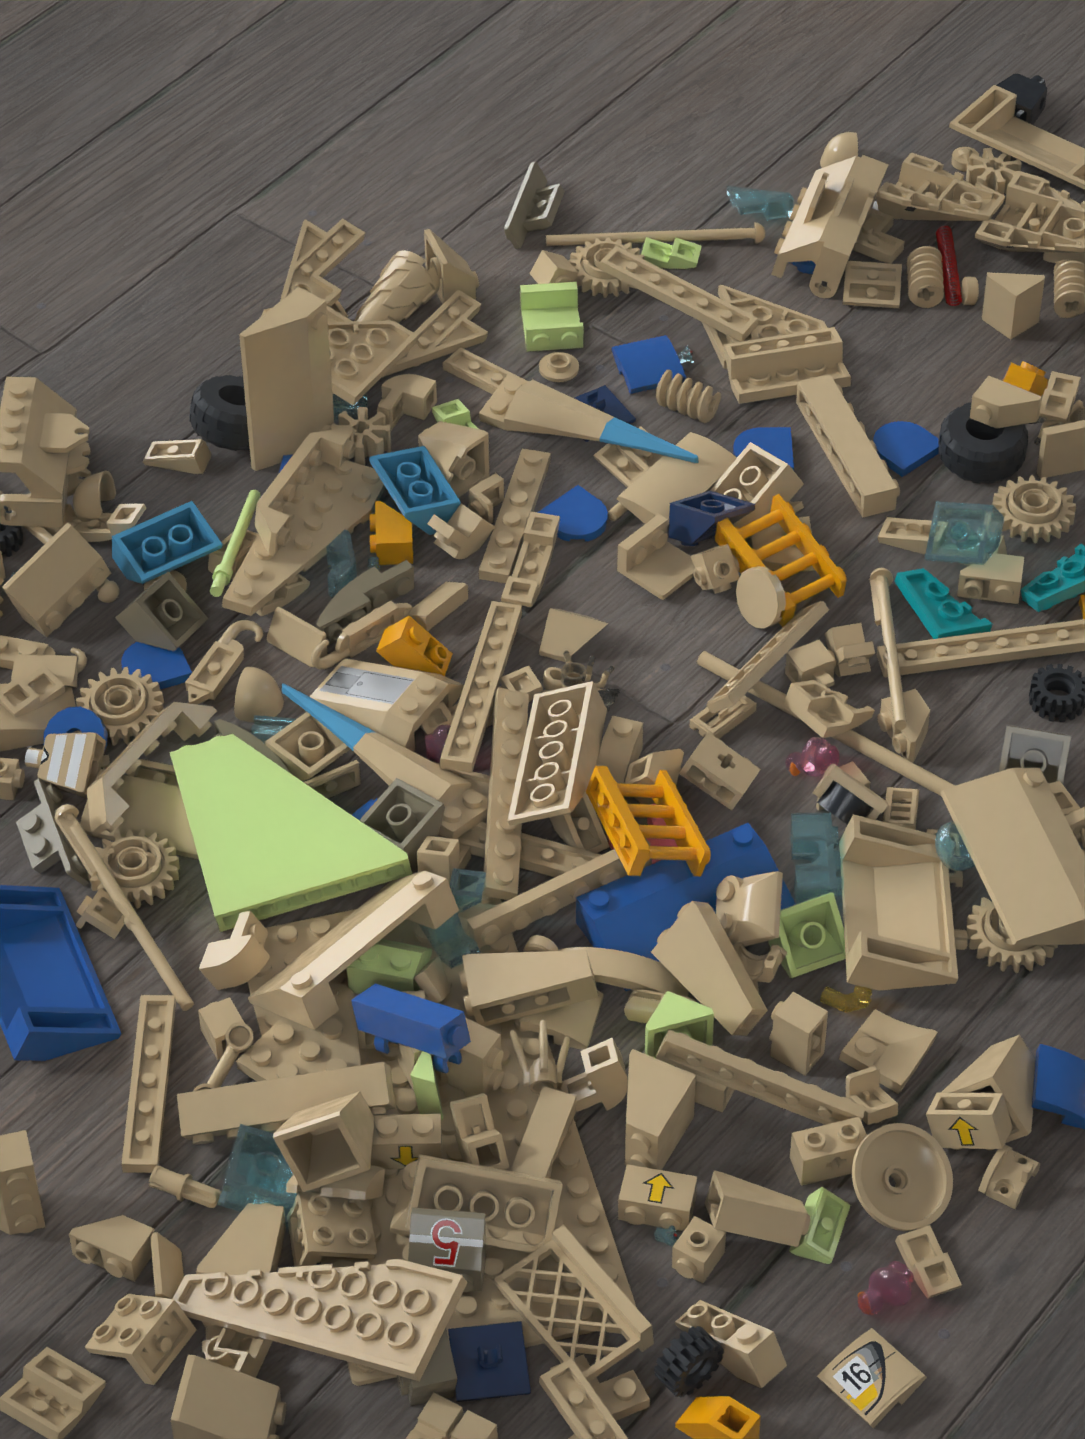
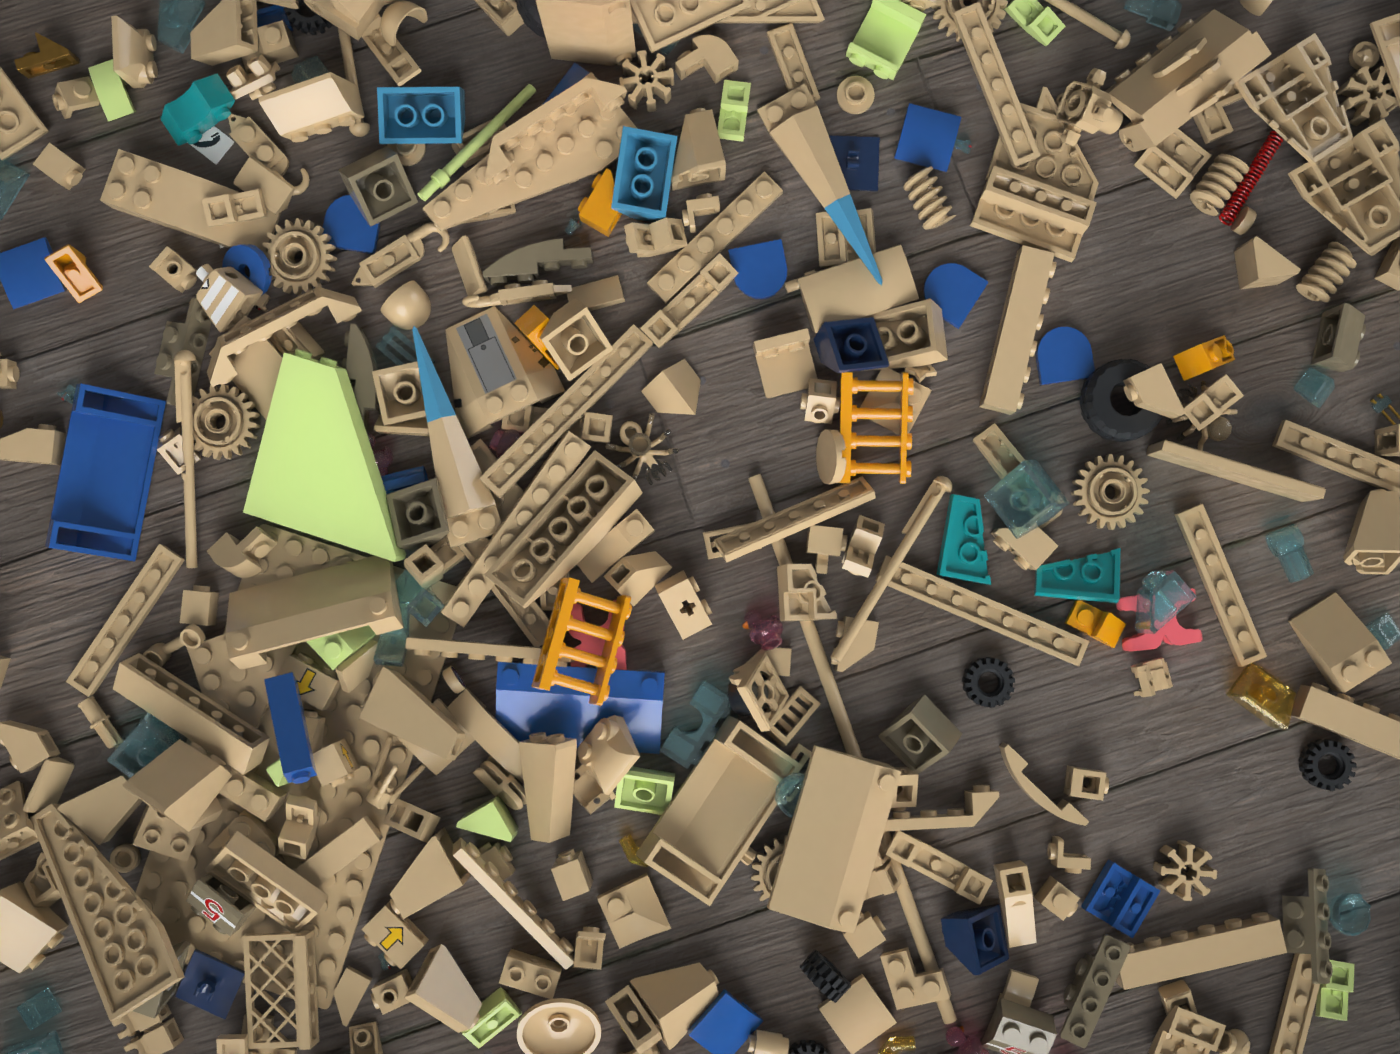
camera: 30 degrees right, 40 degrees up
(340, 562) = (554, 203): clear light blue slope -> none
(450, 619) = (574, 339): none -> tan slope
(651, 1285) = (350, 992): none -> tan tile
(768, 274) = (1087, 108): none -> tan piece

